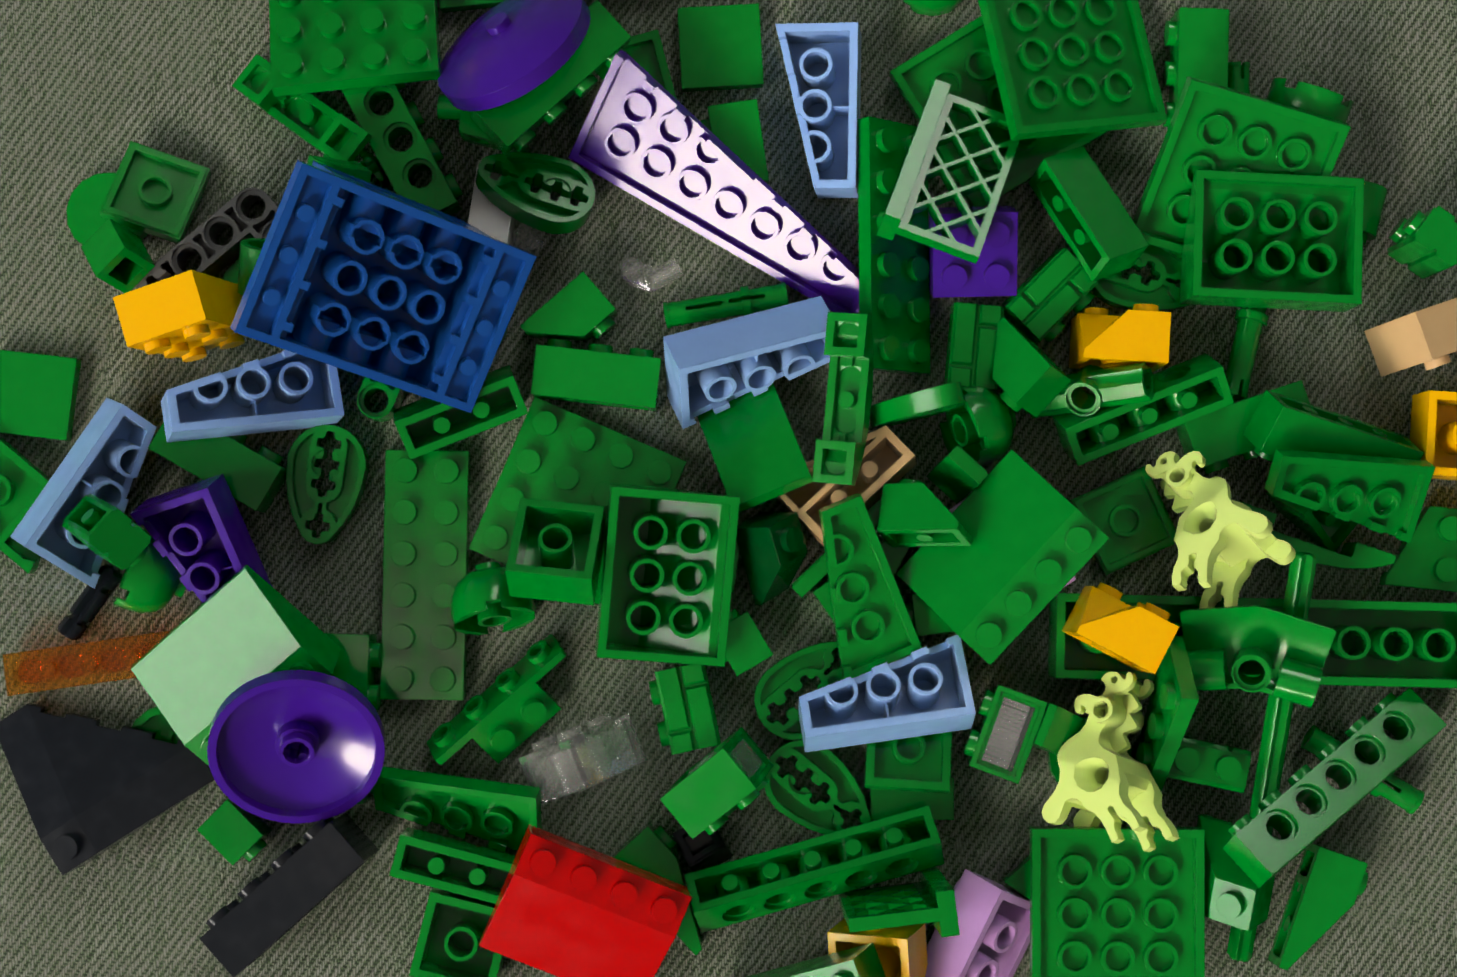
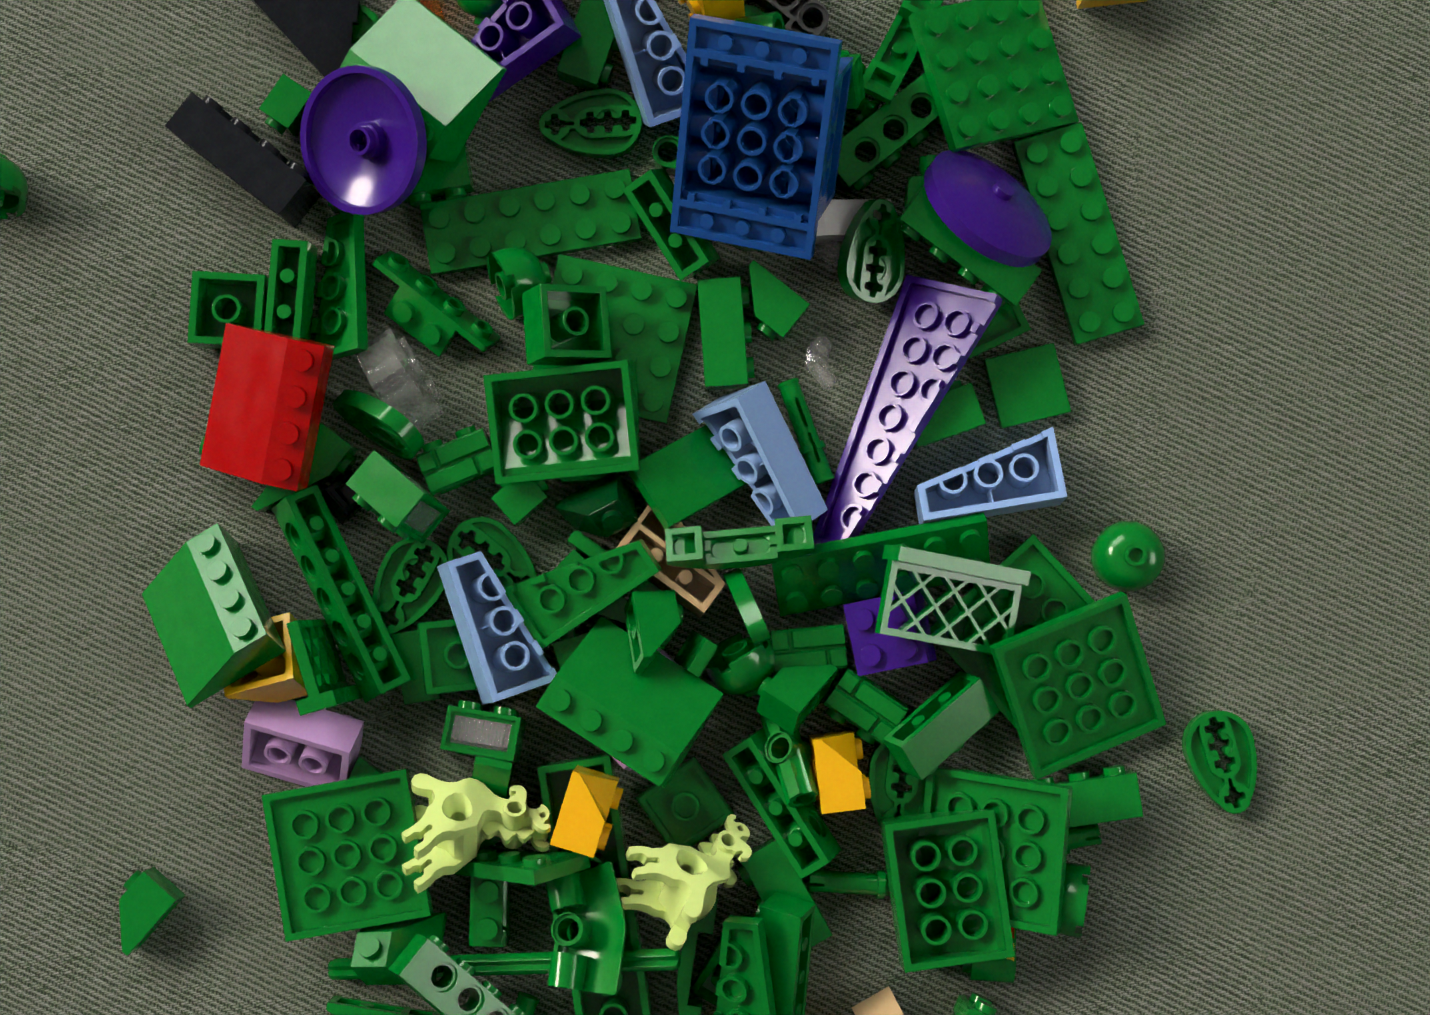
camera: 80 degrees right, 0 degrees up
(626, 789) = (379, 423): none -> green piece

